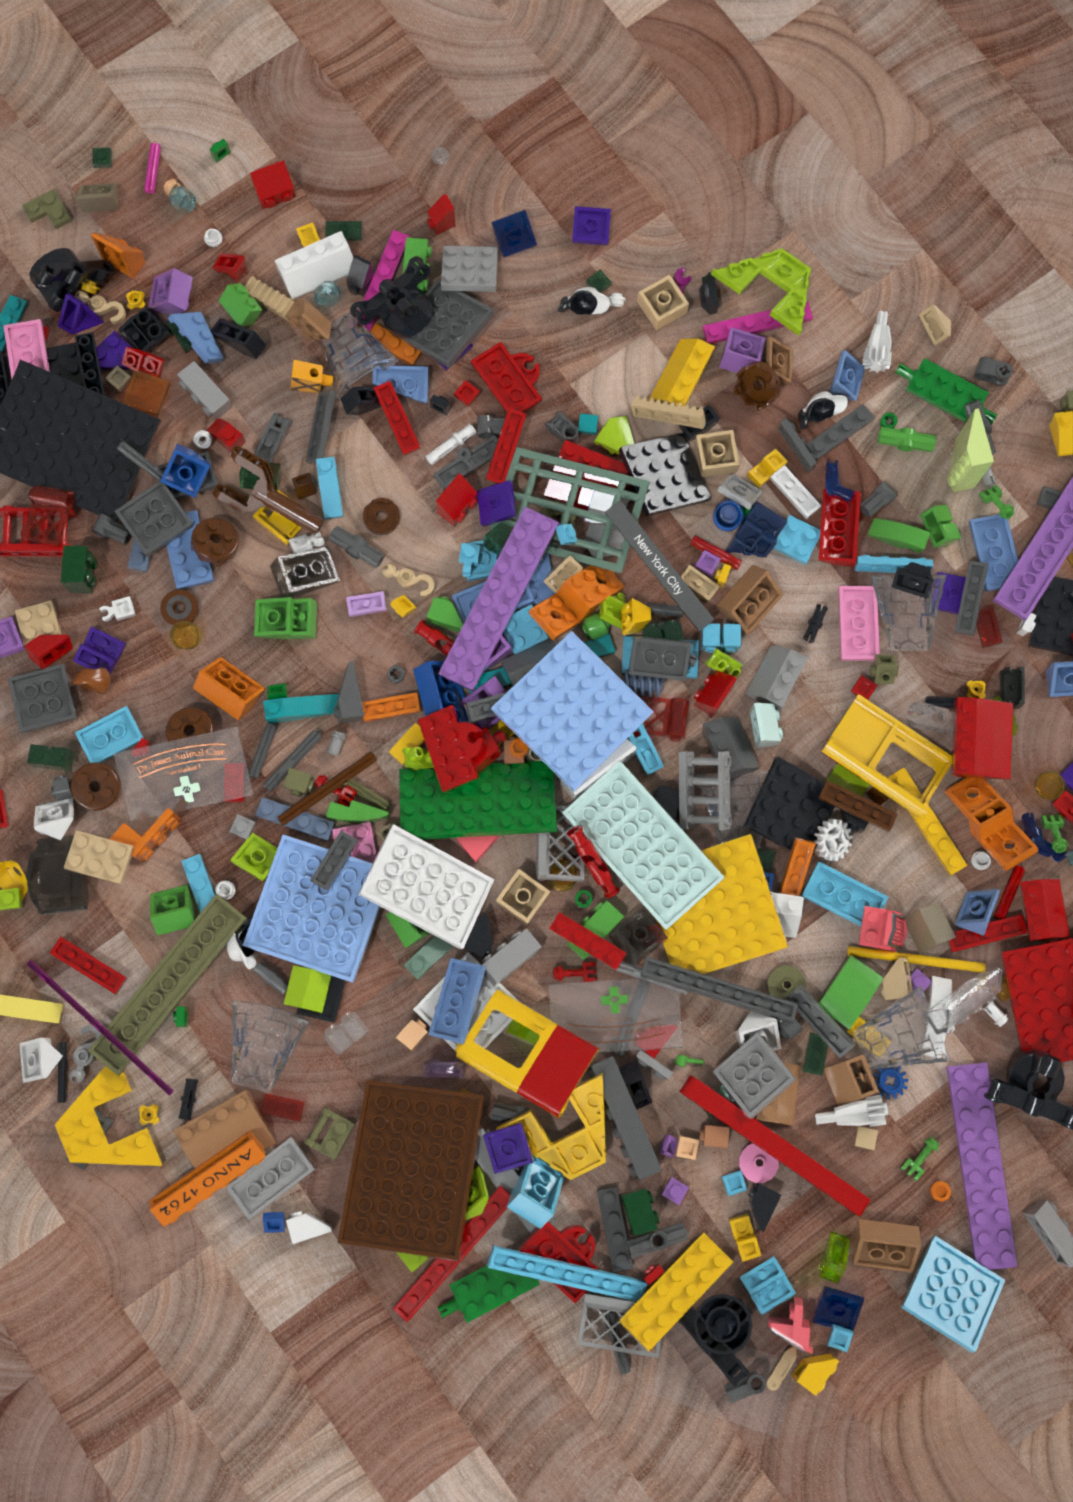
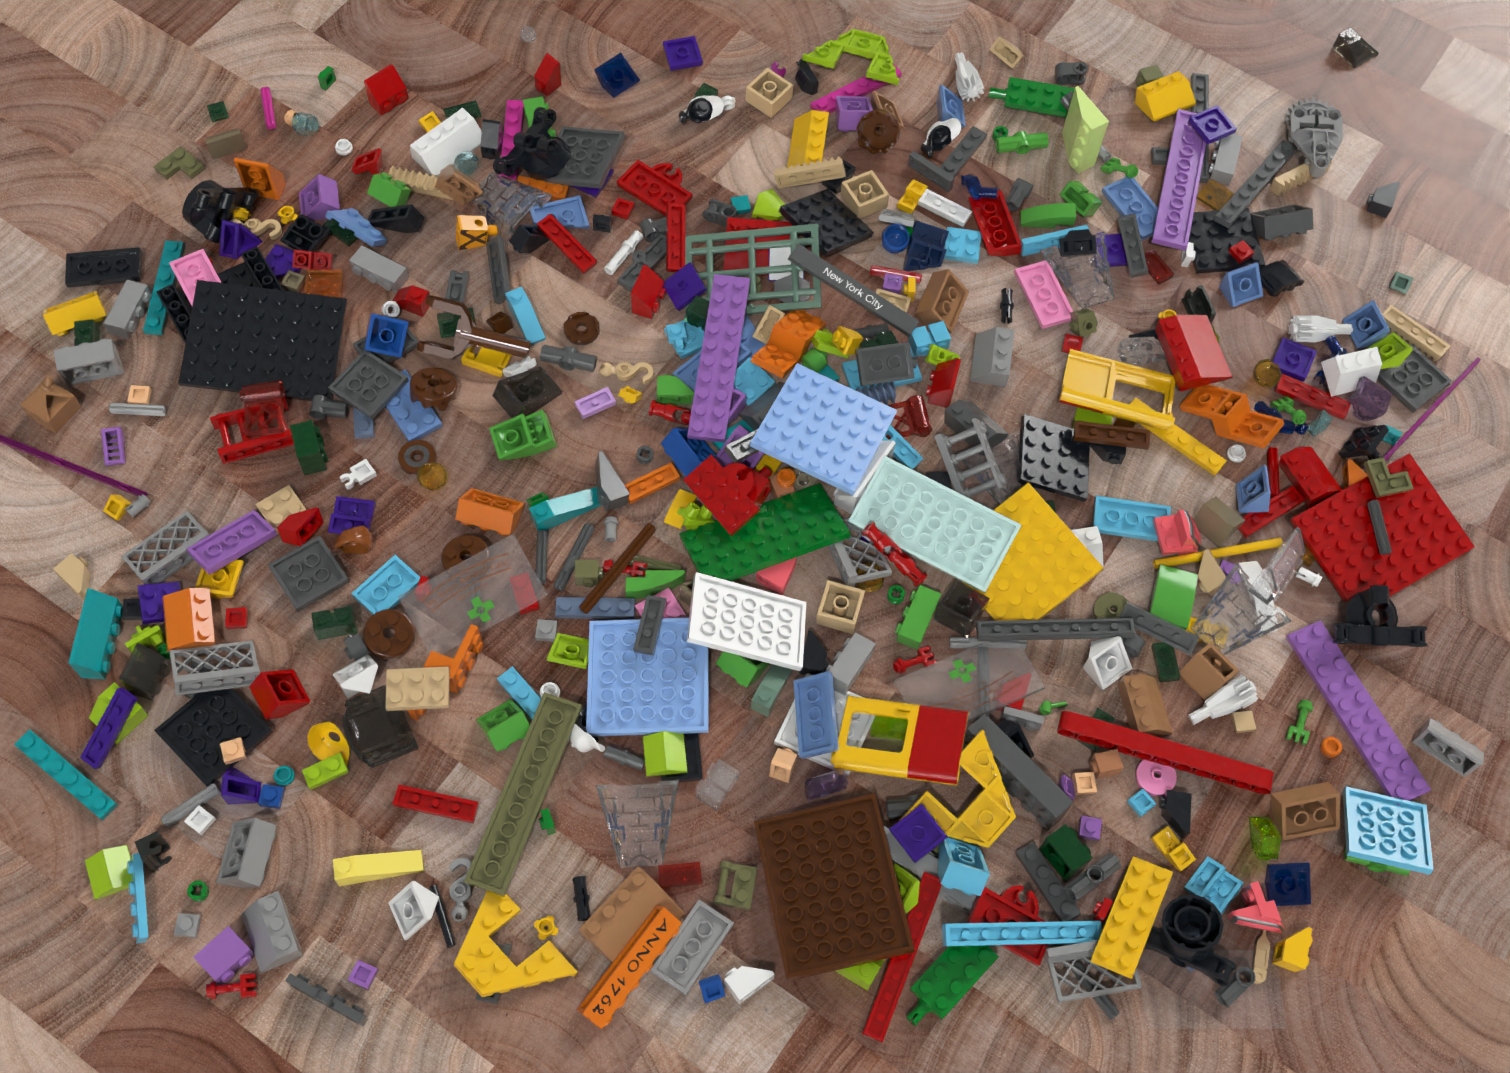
camera: 20 degrees left, 15 degrees down
(117, 1043) = (470, 854): magenta piece -> none
(141, 461) = (339, 337): dark grey axle -> none
(469, 268) = (588, 110): light grey plate -> none
(566, 534) = (760, 287): medium azure plate -> none
(587, 941) = (917, 624): red plate -> none
(754, 1075) = (1121, 691): light grey plate -> none
(765, 725) = (999, 397): light aqua slope -> none
(797, 867) = (1079, 502): orange plate -> none
(833, 839) = (1101, 472): white gear -> none
(840, 1338) = (1302, 911): medium azure tile -> none
(898, 1083) = (1250, 663): blue gear -> none

